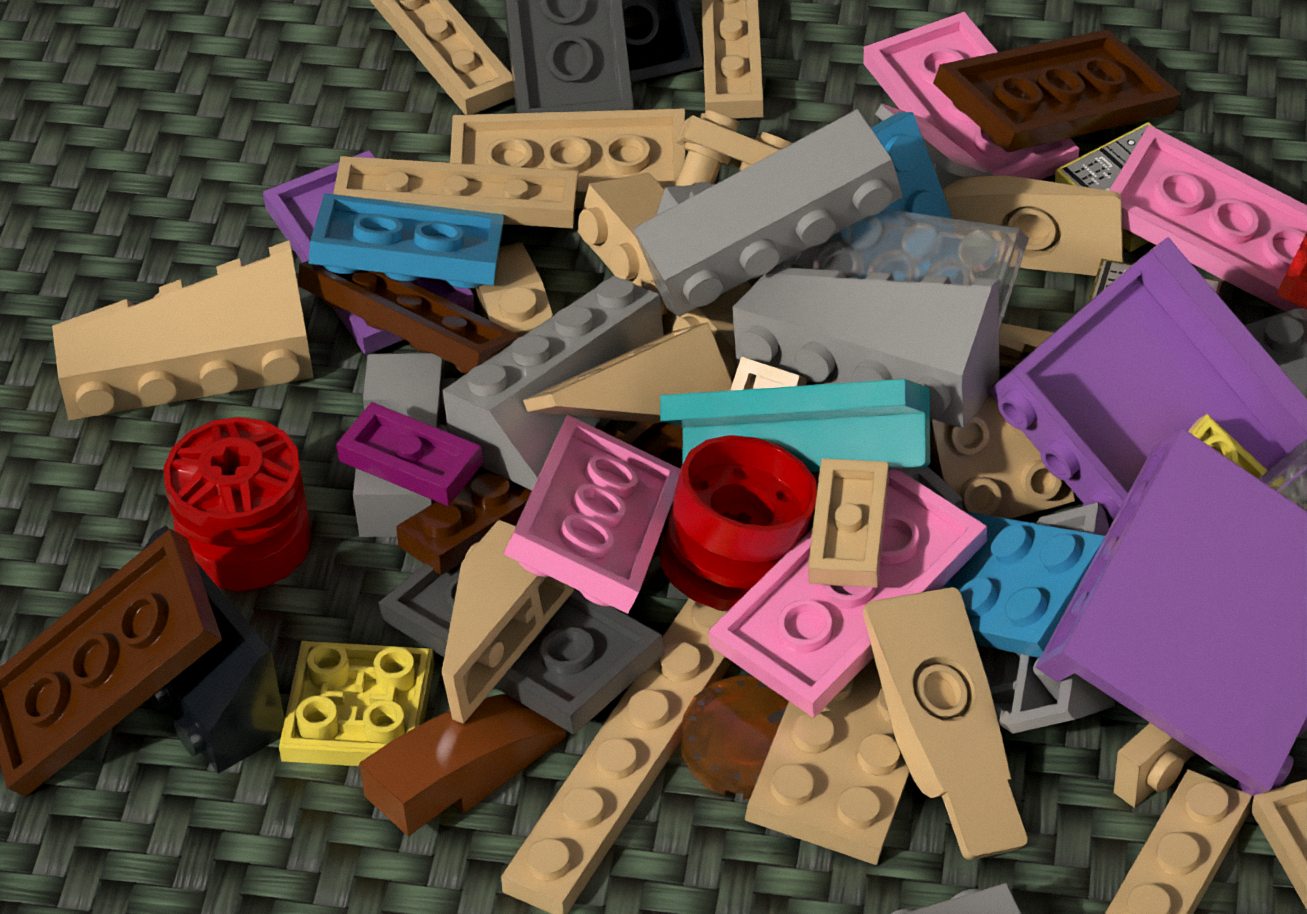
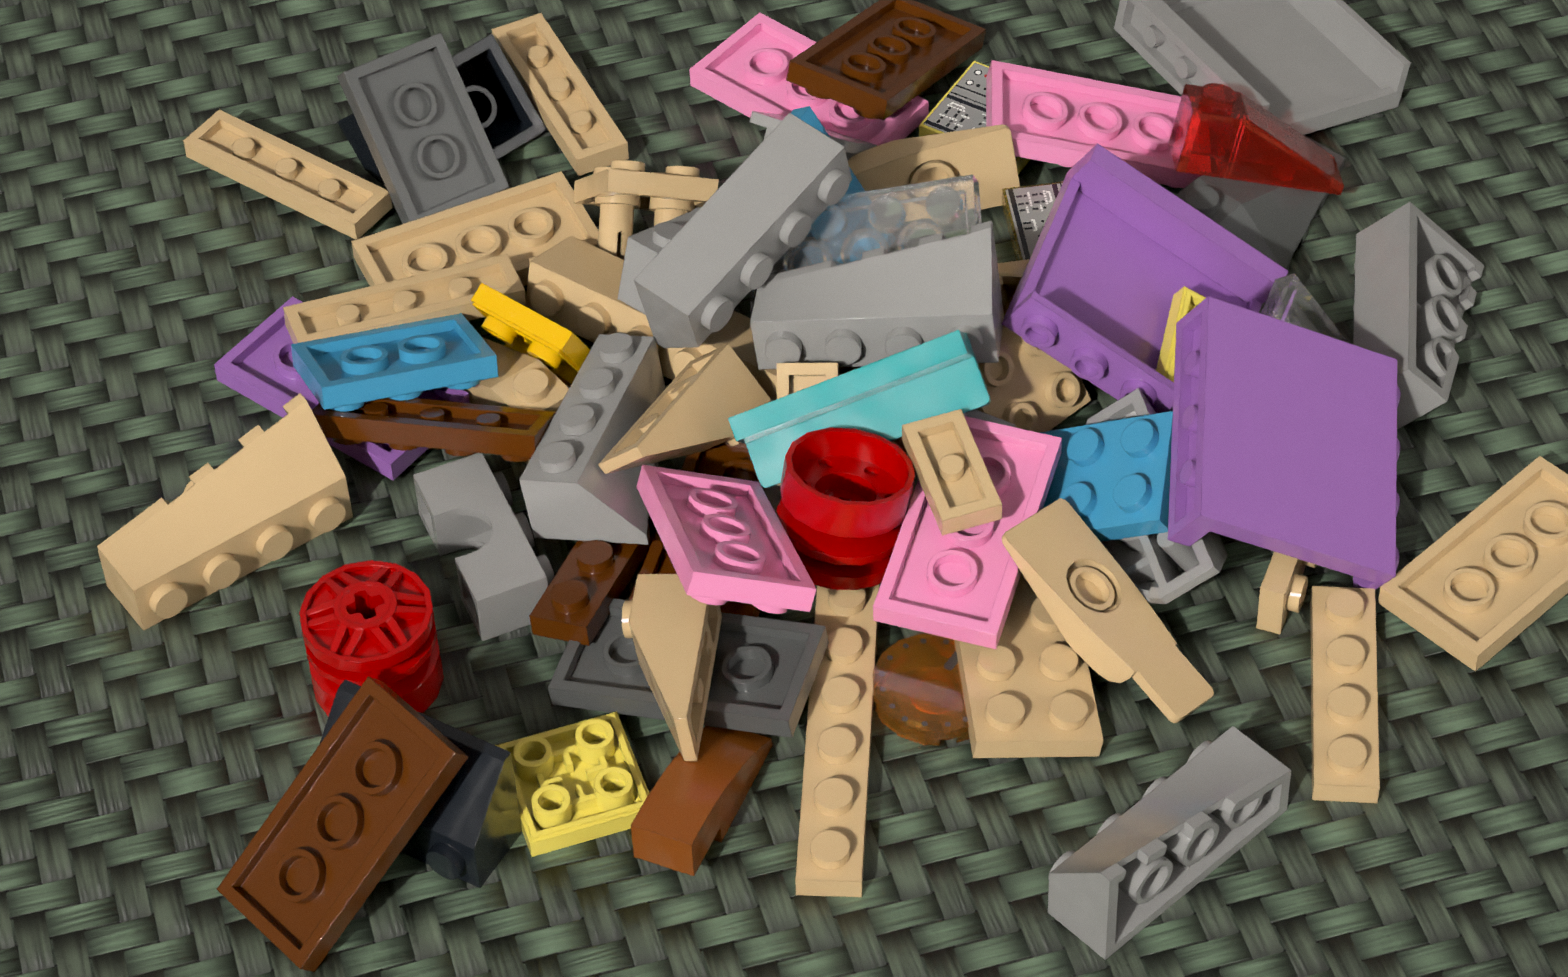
camera: 25 degrees left, 0 degrees up
(409, 453) = (515, 546): magenta plate -> none
(557, 260) = (531, 333): none -> yellow tile

